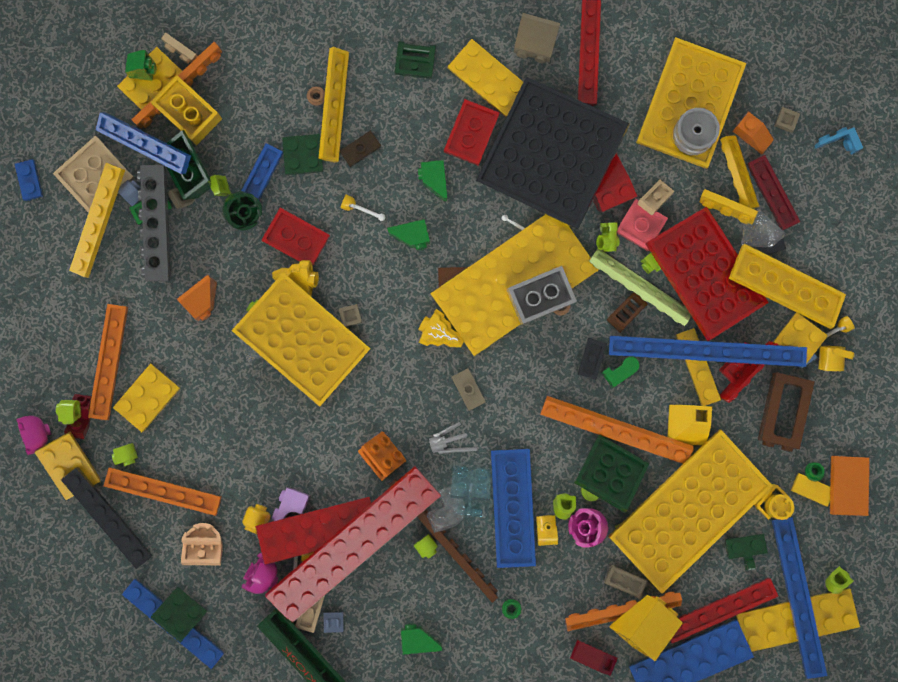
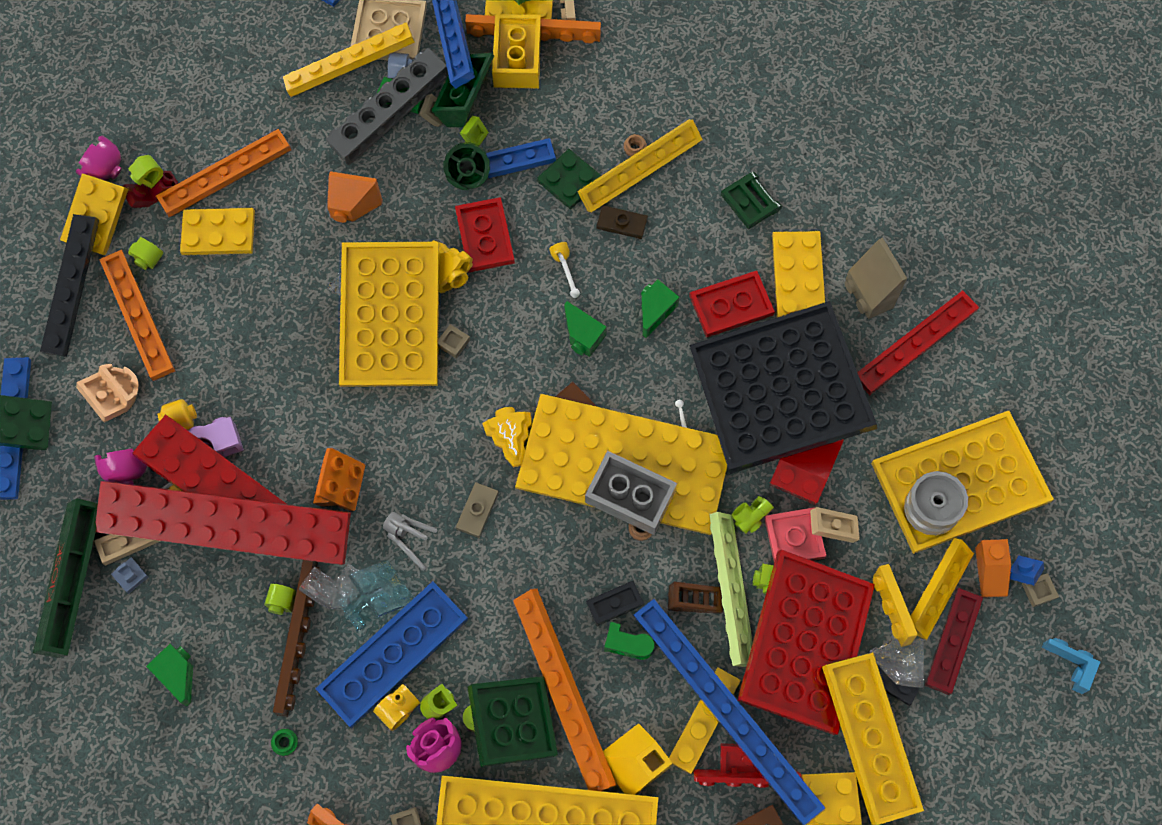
camera: 50 degrees right, 15 degrees down
(771, 116) = (1026, 570): none -> blue plate

